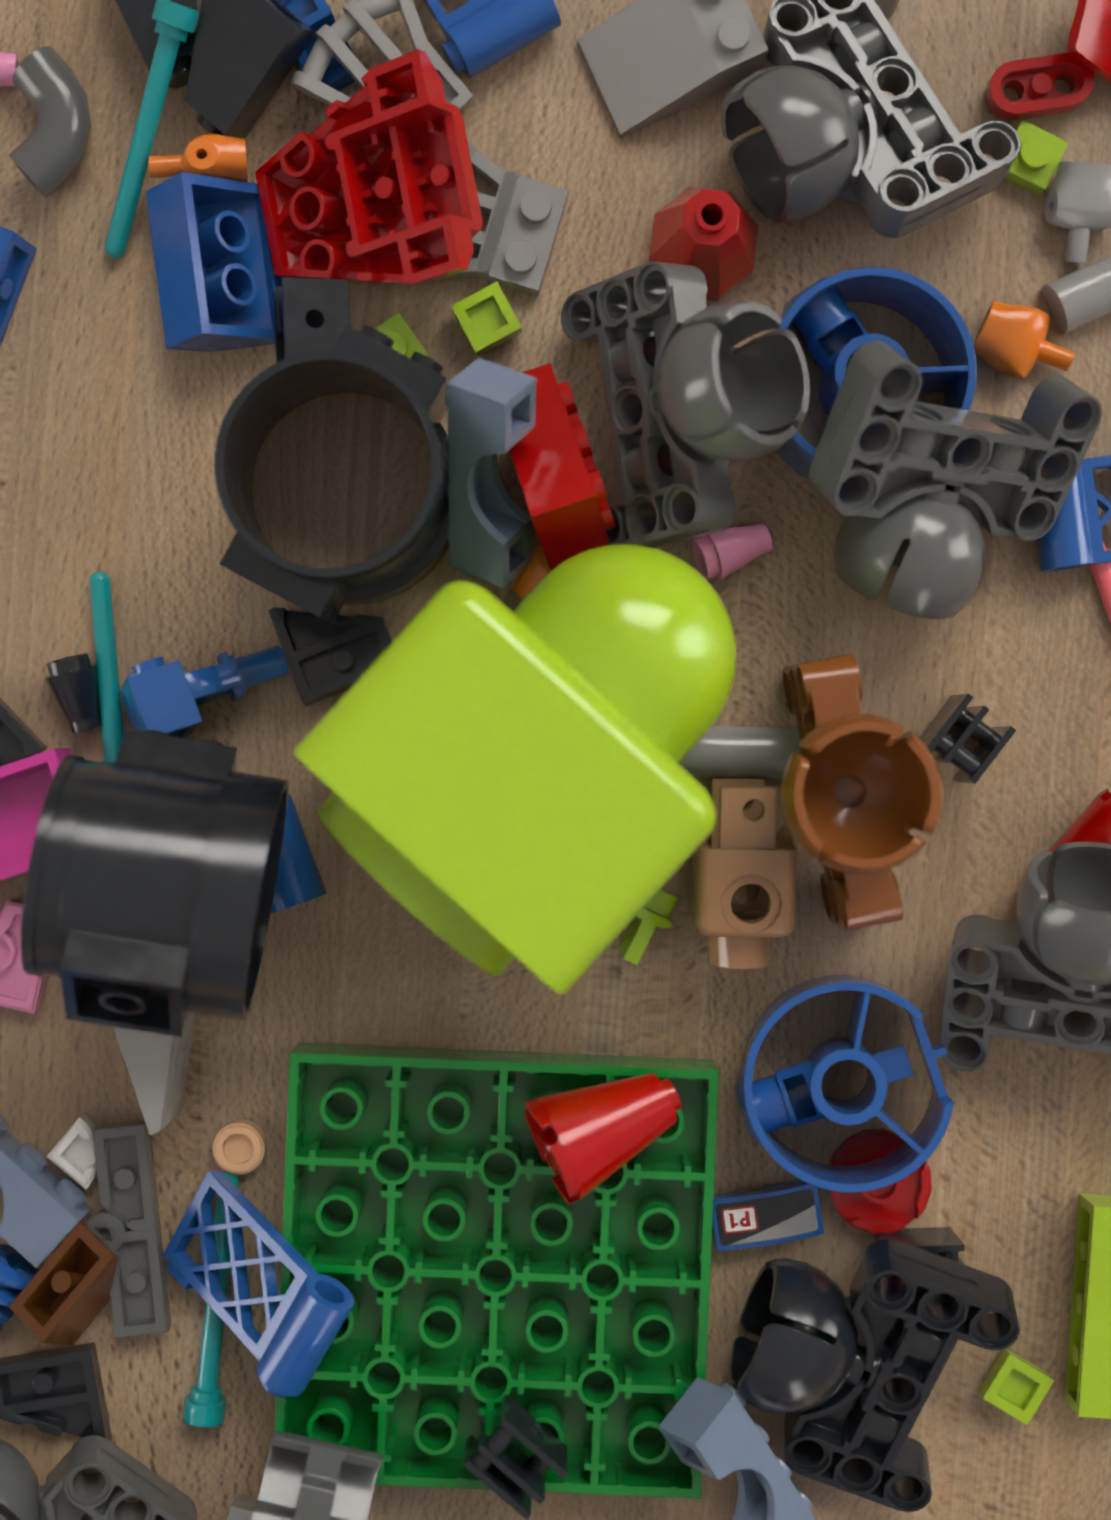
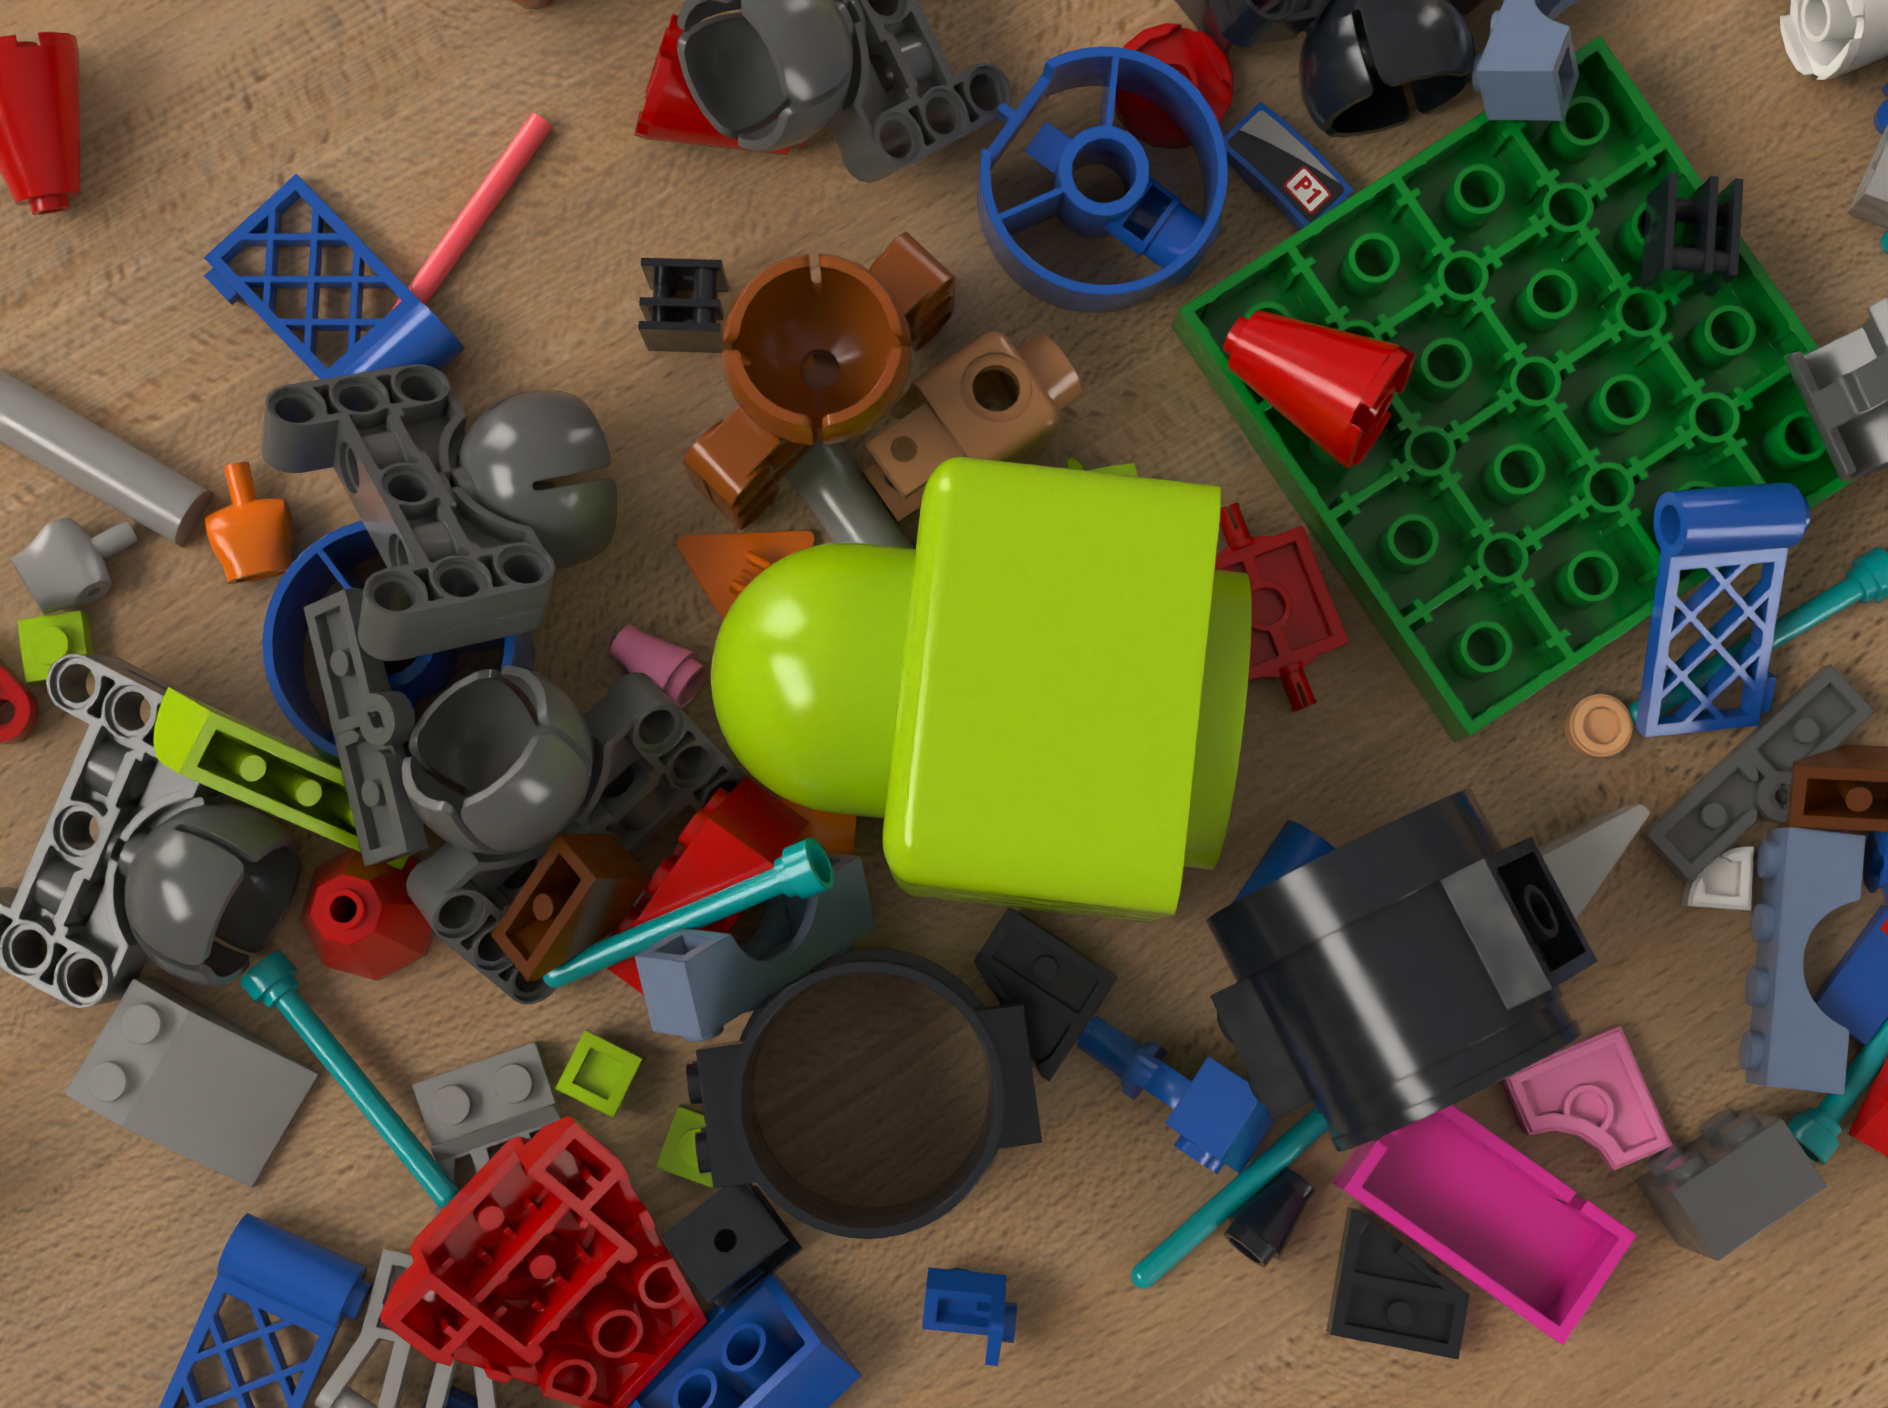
camera: 135 degrees left, 5 degrees down
(161, 455) = (972, 1305): none -> blue bracket
(470, 1000) = (1289, 603): none -> red plate
(513, 531) = (800, 871): none -> teal piece
(607, 367) = (569, 902): none -> reddish brown slope
(697, 146) = (275, 984): none -> teal piece
(761, 652) = (732, 560): none -> orange piece
(819, 313) = (367, 728): none -> dark grey hinge
(833, 232) = (255, 768): none -> lime brick

